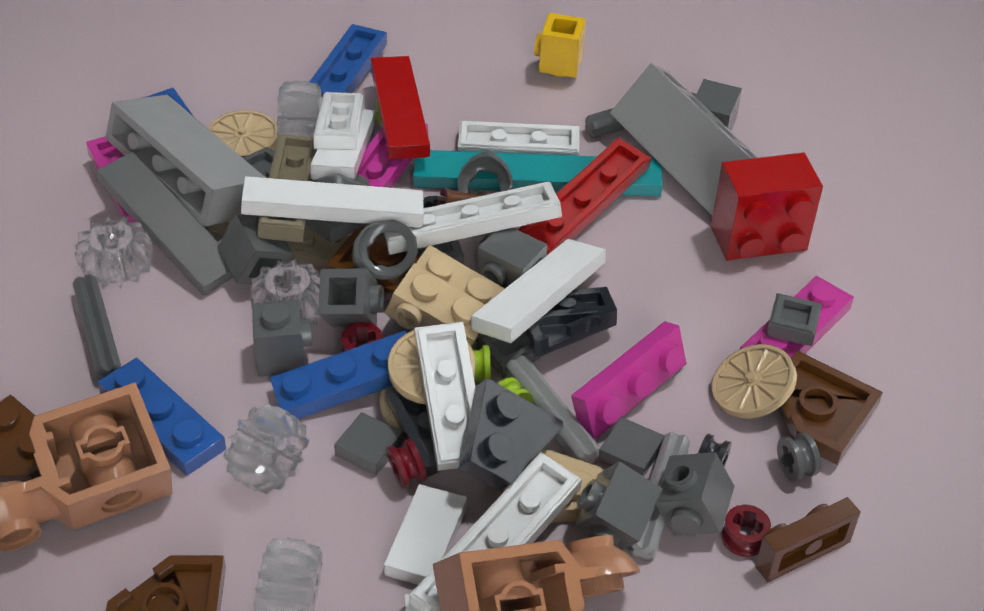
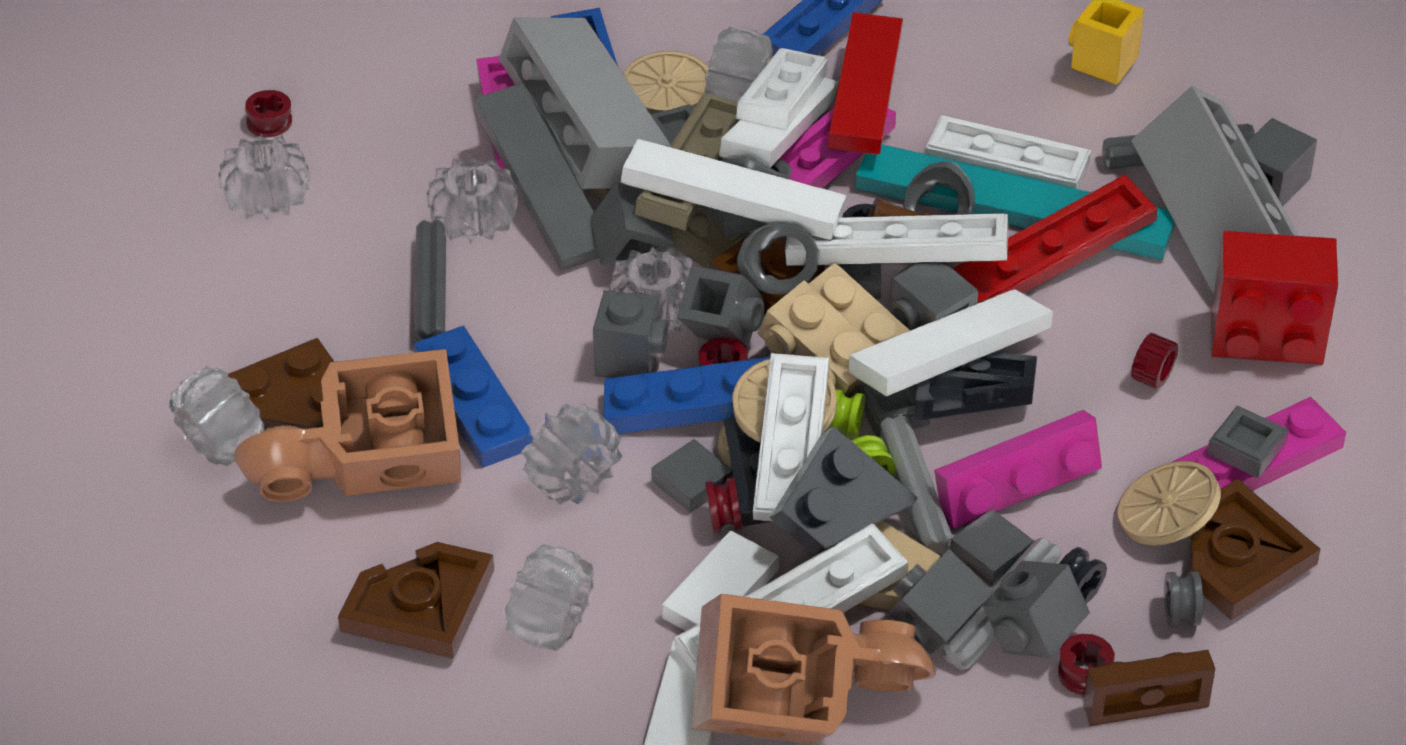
camera: 20 degrees right, 0 degrees up
(693, 271) = (1154, 360): none -> dark red axle

